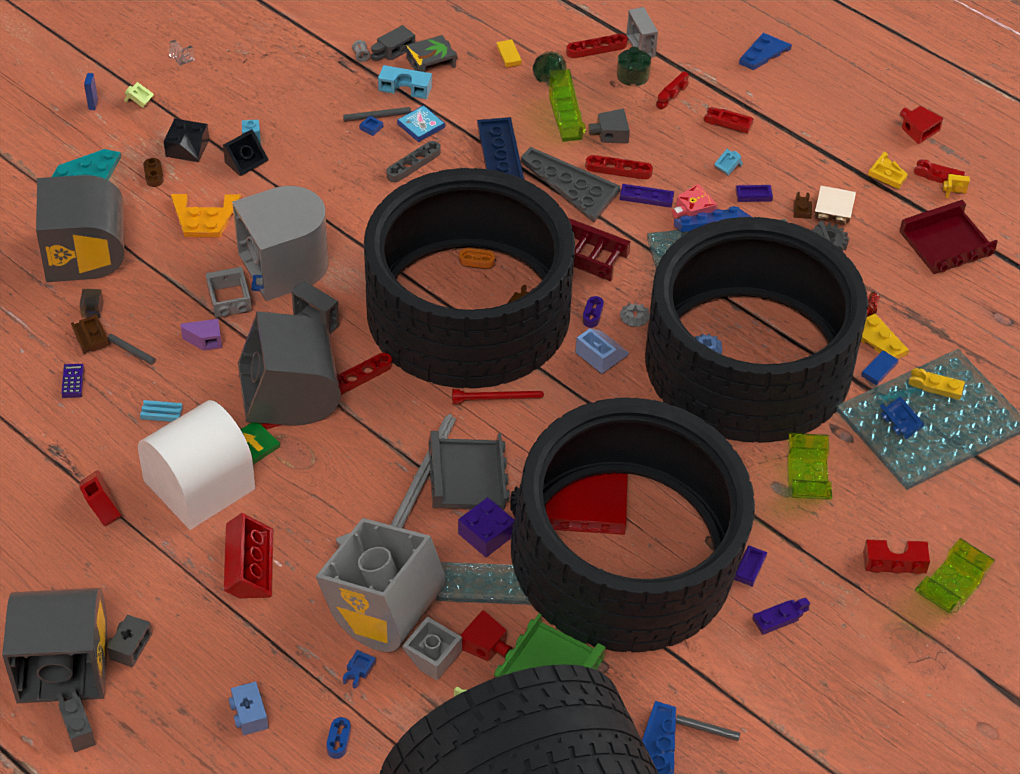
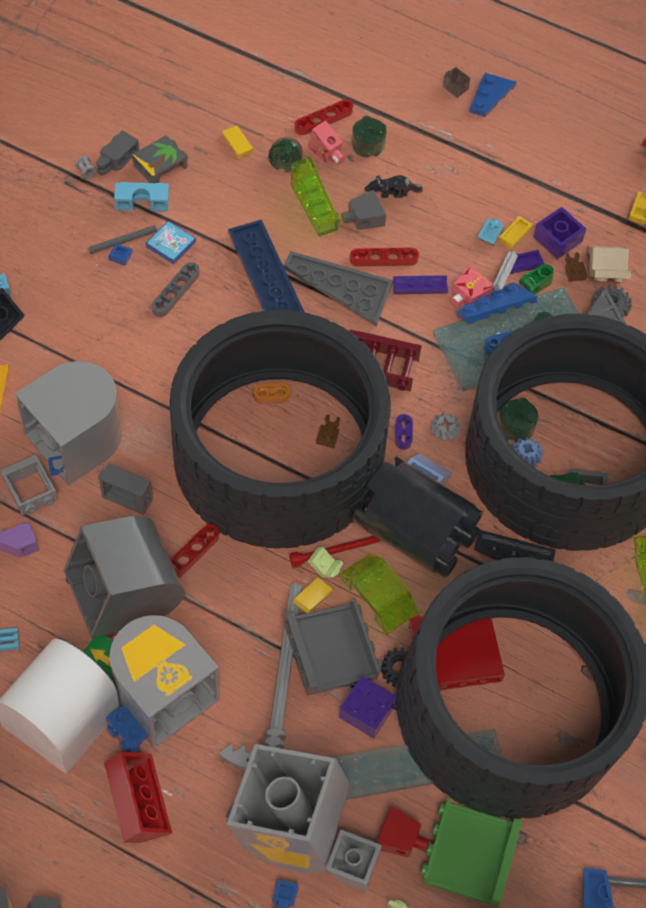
camera: 15 degrees left, 10 degrees up
(253, 499) = (126, 730): none -> blue bracket
(298, 458) = (162, 675): none -> light grey brick
(463, 427) = (312, 595): none -> yellow tile
(482, 403) = (324, 563): none -> yellowish green bracket
(523, 427) = (381, 591): none -> clear neon green slope
(575, 366) = (419, 516): none -> black brick
(590, 64) = (326, 143): none -> coral torso
(642, 31) = (367, 95): light grey window -> none
(650, 111) = (397, 185): none -> black animal
(672, 90) = (414, 156): red hinge -> none
(705, 317) = (518, 419): none -> clear green brick
(728, 119) = (478, 181): red hinge -> none
(730, 194) = (504, 271): none -> light grey axle
(732, 36) = (456, 82): none -> clear smoke brick
(753, 168) = (515, 232): none -> yellow tile
(763, 207) = (538, 279): none -> green piece
(794, 172) = (559, 232): none -> dark purple brick

